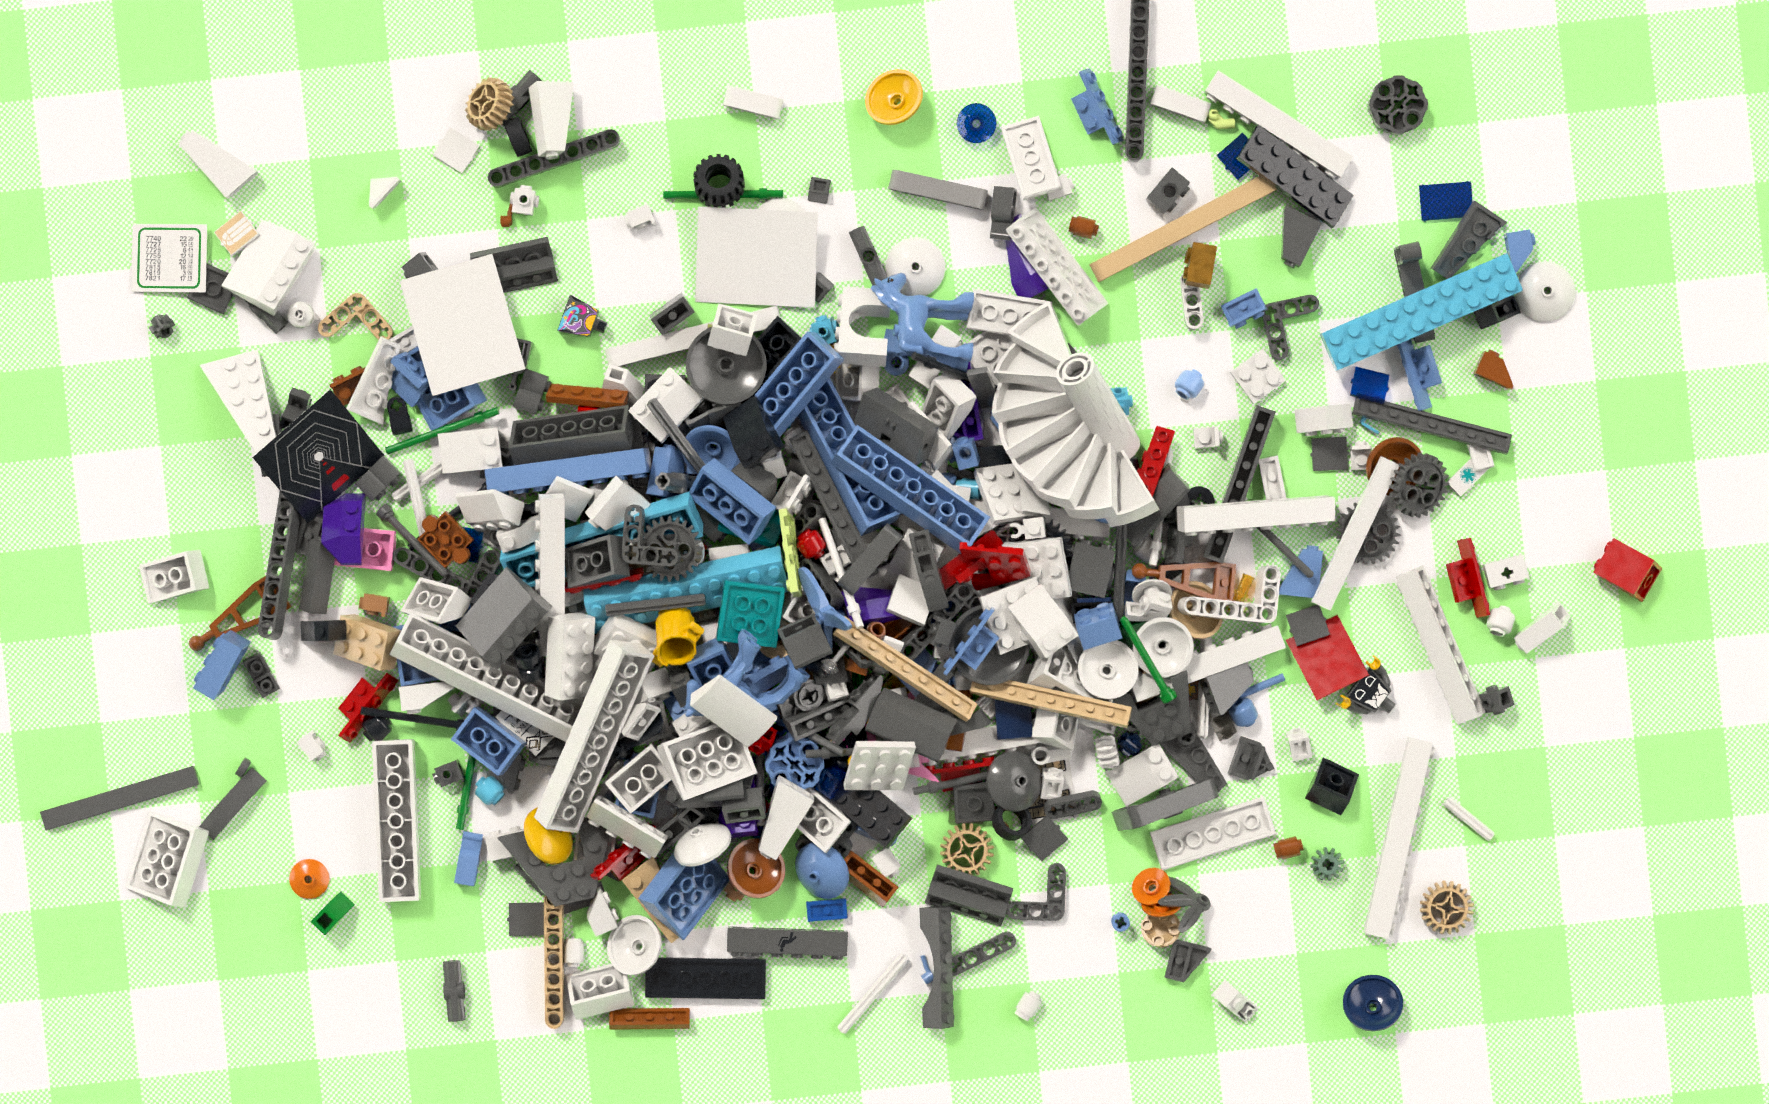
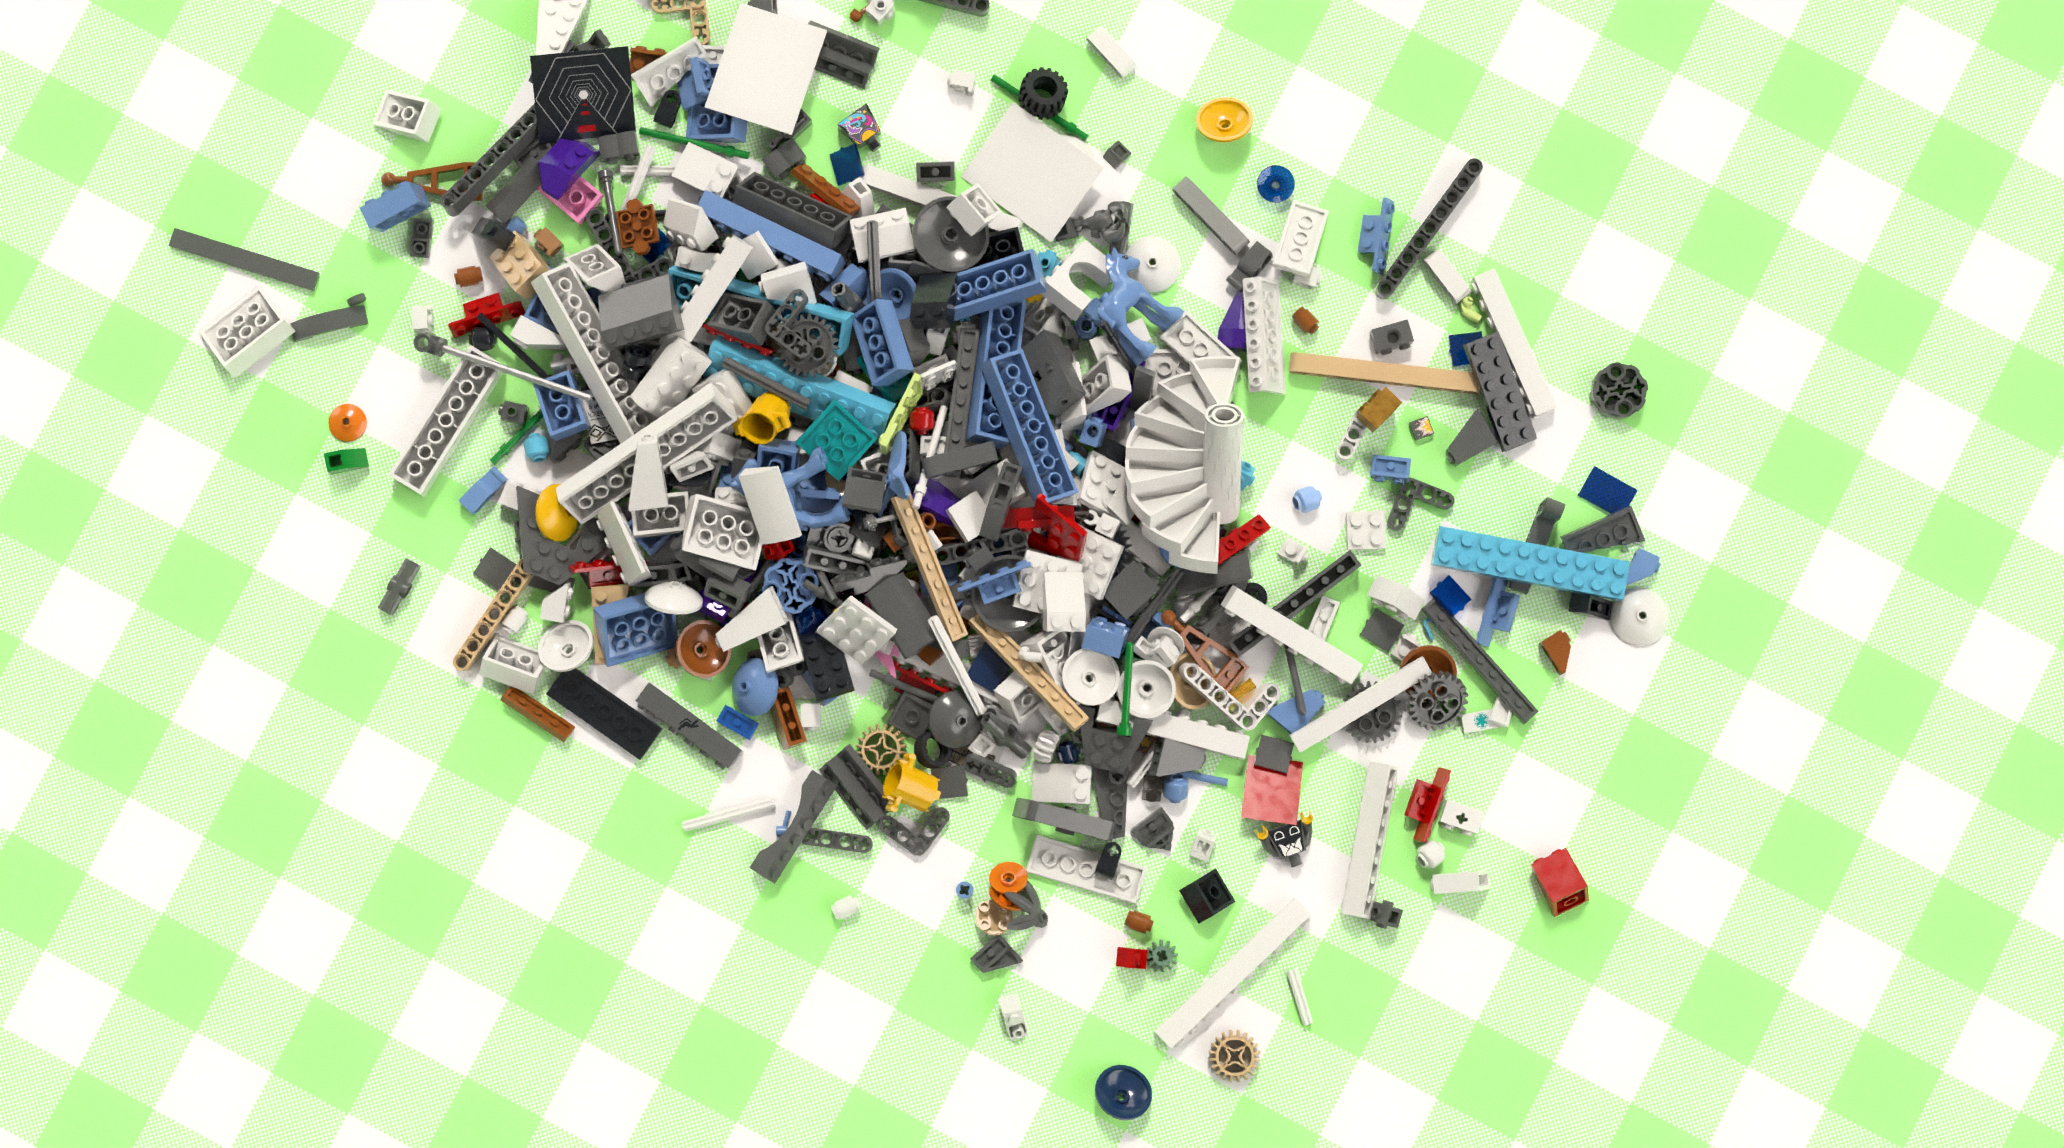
camera: 25 degrees right, 5 degrees down
(326, 681) = (468, 276): none -> dark orange brick
(337, 608) = (517, 225): none -> medium blue cone
(345, 761) = (439, 346): none -> flat silver piece
(589, 359) = (847, 164): none -> clear blue piece
(612, 759) = (648, 478): none -> white slope
(848, 260) = (1102, 222): none -> dark grey animal
(885, 378) = (1069, 332): none -> dark grey slope
(986, 737) = (956, 665): none -> white axle
(1014, 866) = (909, 786): none -> yellow container
(1045, 688) = (1025, 654): none -> white arm
(1067, 766) = (1006, 735): none -> dark grey piece
(1228, 817) = (1108, 864): none -> black piece
(1247, 253) = (1421, 428): none -> tile
(1303, 883) = (1131, 957): none -> red brick

